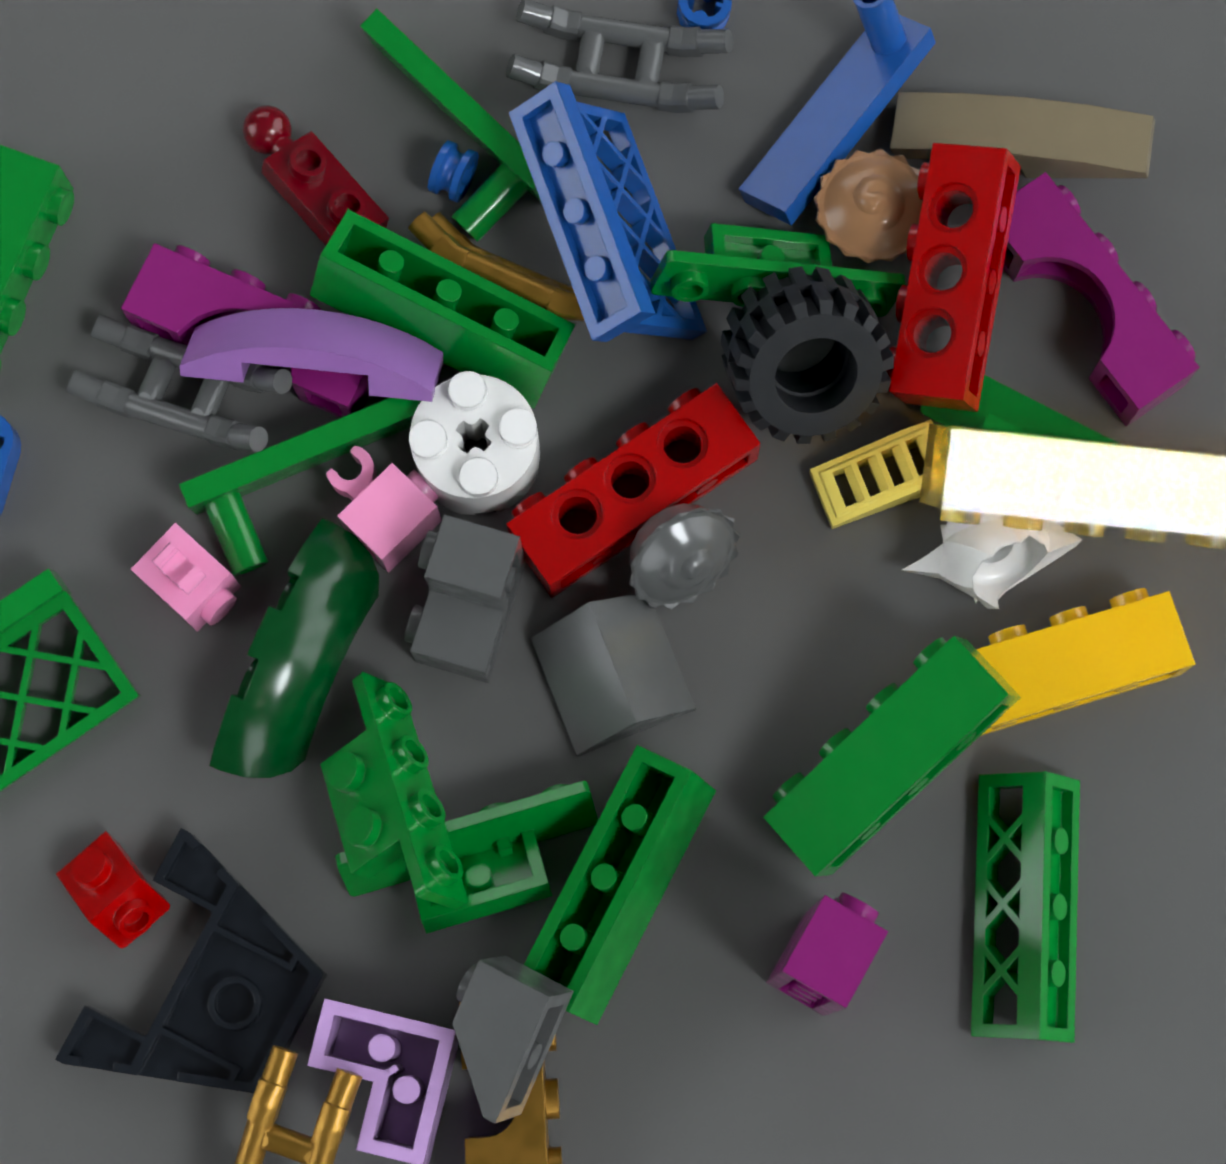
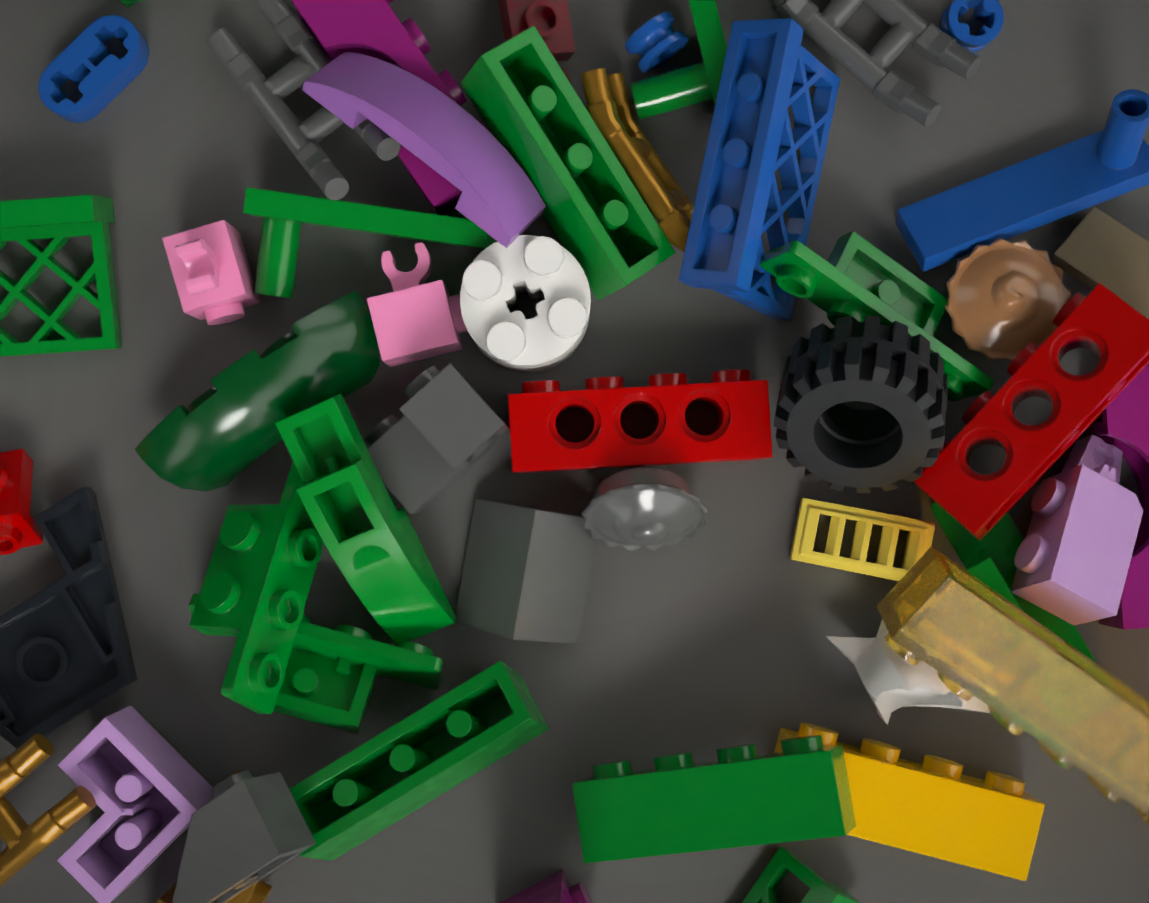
camera: 30 degrees right, 10 degrees up
(450, 702) = (360, 523): none -> green slope
(1056, 359) = (1079, 537): none -> lavender hinge

